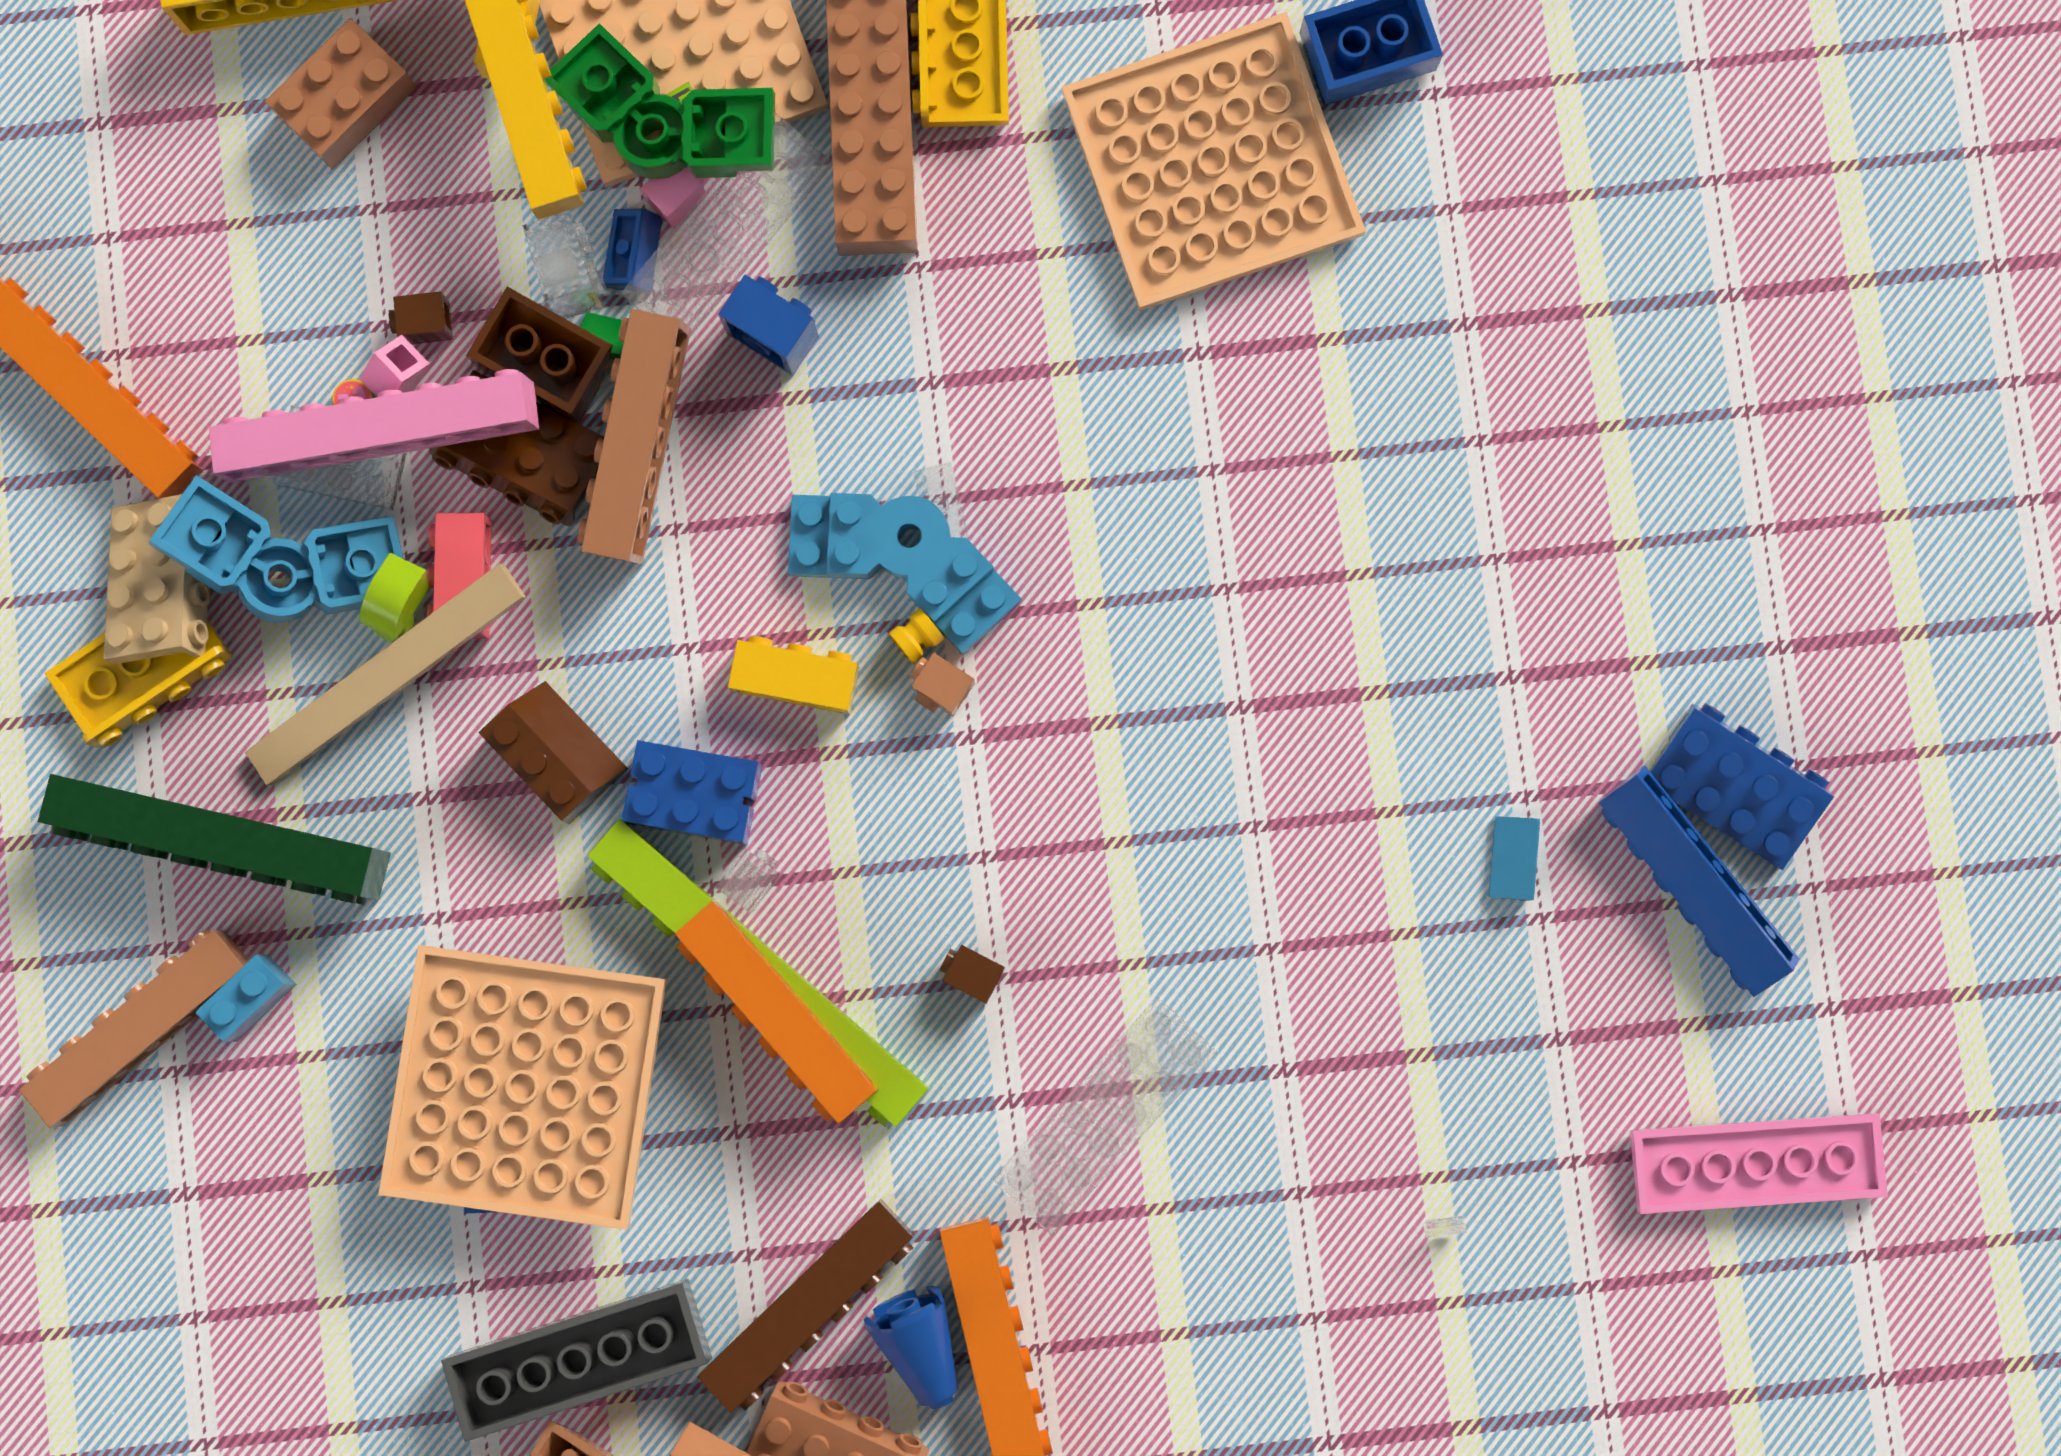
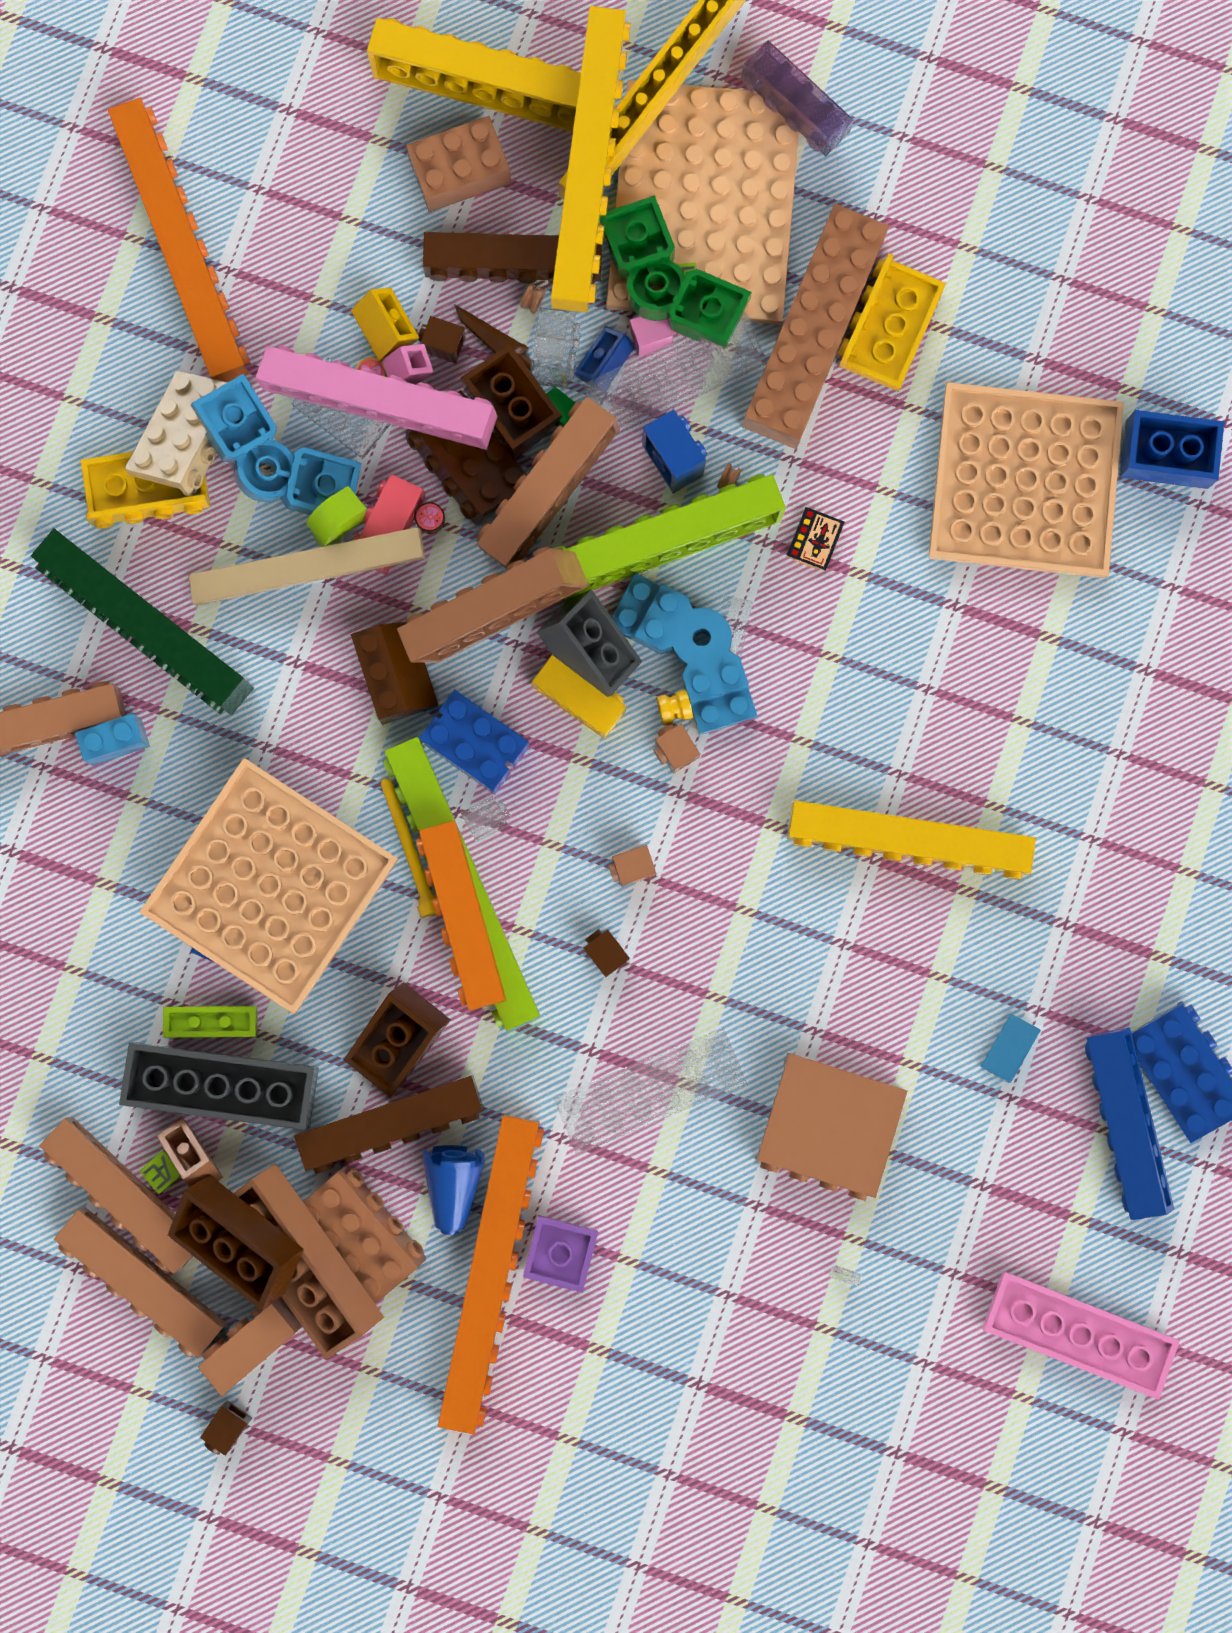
camera: 20 degrees right, 0 degrees up
(340, 330) = (384, 322): none -> yellow brick
(436, 189) = (492, 257): none -> reddish brown brick
(481, 286) = (492, 337): none -> reddish brown bar
(509, 216) = (533, 298): none -> nougat bush
(509, 544) = (430, 518): none -> tile
(529, 1286) = (210, 1021): none -> lime plate
(635, 617) = (492, 605): none -> nougat brick
(727, 1021) = (425, 905): none -> yellow piece
(767, 1199) = (396, 1039): none -> reddish brown slope
(777, 606) = (590, 643): none -> dark grey slope
(807, 435) = (679, 532): none -> lime brick
(852, 325) = (729, 476): none -> nougat bush
(955, 853) = (632, 866): none -> nougat brick
(991, 351) = (815, 539): none -> piece
(1088, 1365) = (560, 1253): none -> medium lavender plate
(1277, 661) = (911, 838): none -> yellow brick
(1343, 1055) = (831, 1127): none -> nougat panel

